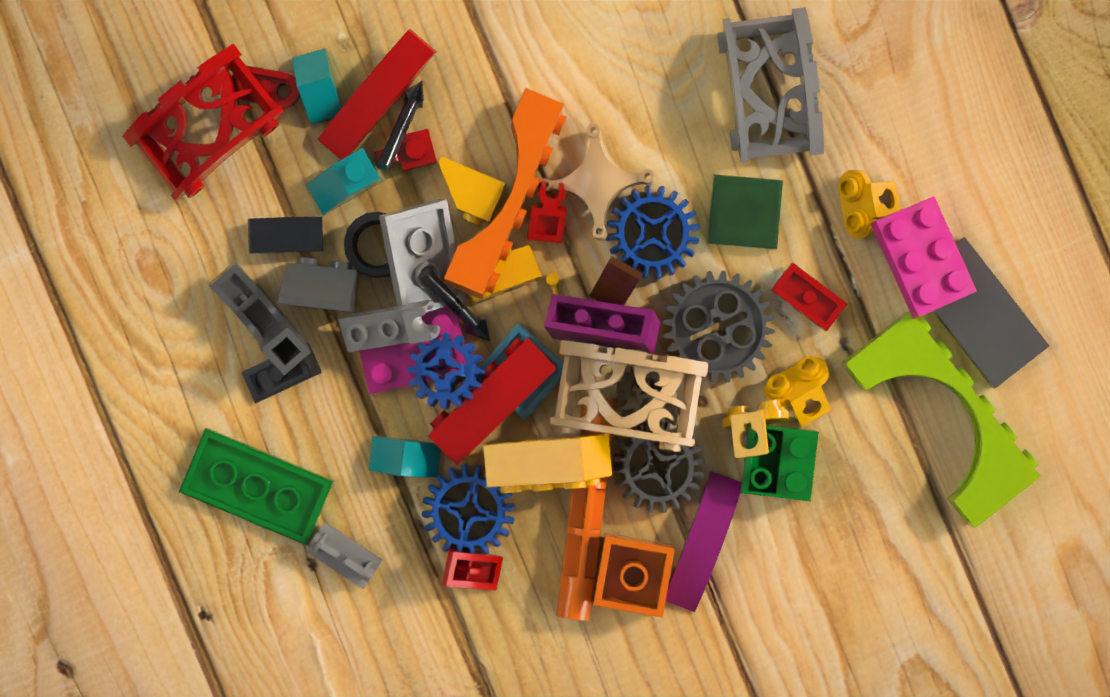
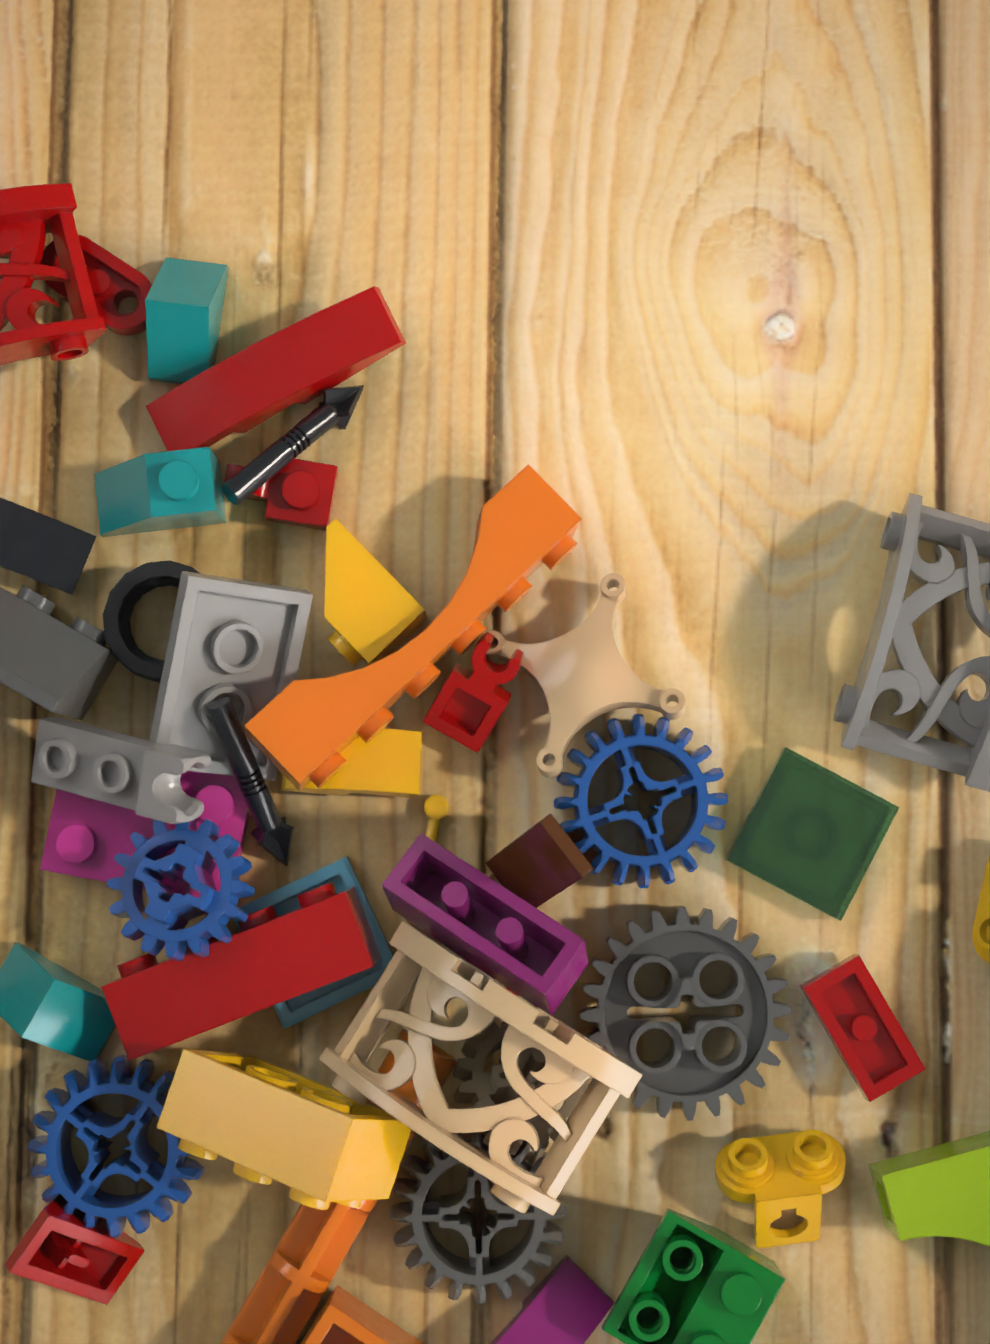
camera: 30 degrees right, 5 degrees down
(739, 418) = (656, 1190): yellow bracket -> none

